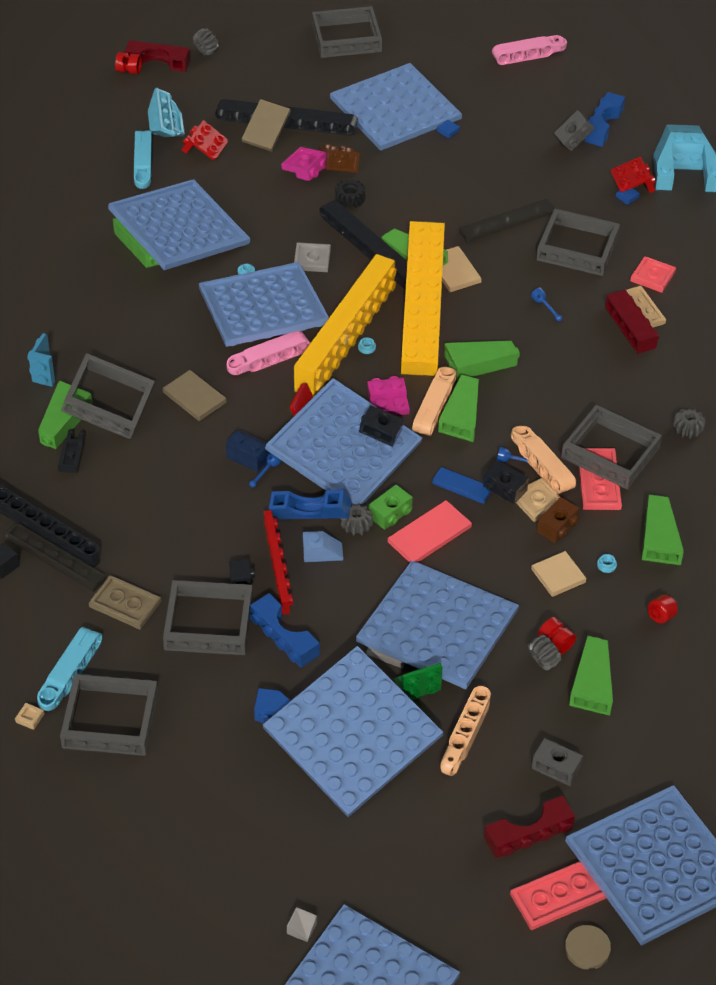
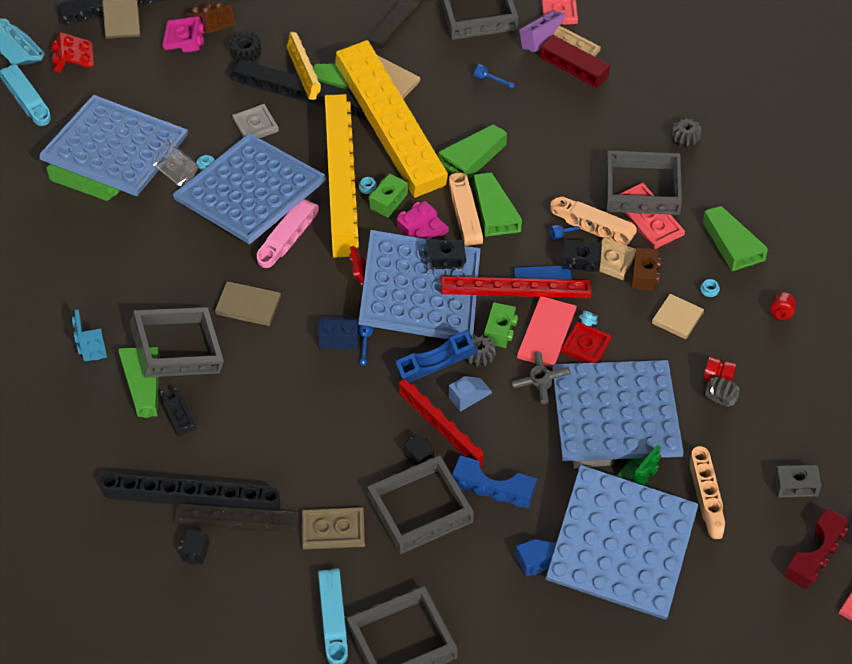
camera: 30 degrees left, 5 degrees up
(217, 258) = (175, 163): none -> clear slope
(377, 361) = (388, 195): none -> bright green brick
(382, 225) = (303, 66): none -> yellow plate
(391, 565) = (541, 377): none -> dark grey bar
(428, 482) = (515, 287): none -> red tile
(457, 558) = (586, 343): none -> red tile
(473, 537) = (588, 318): none -> medium azure plate
(593, 679) = (773, 394): bright green slope -> none
(613, 282) = (540, 30): none -> medium lavender slope

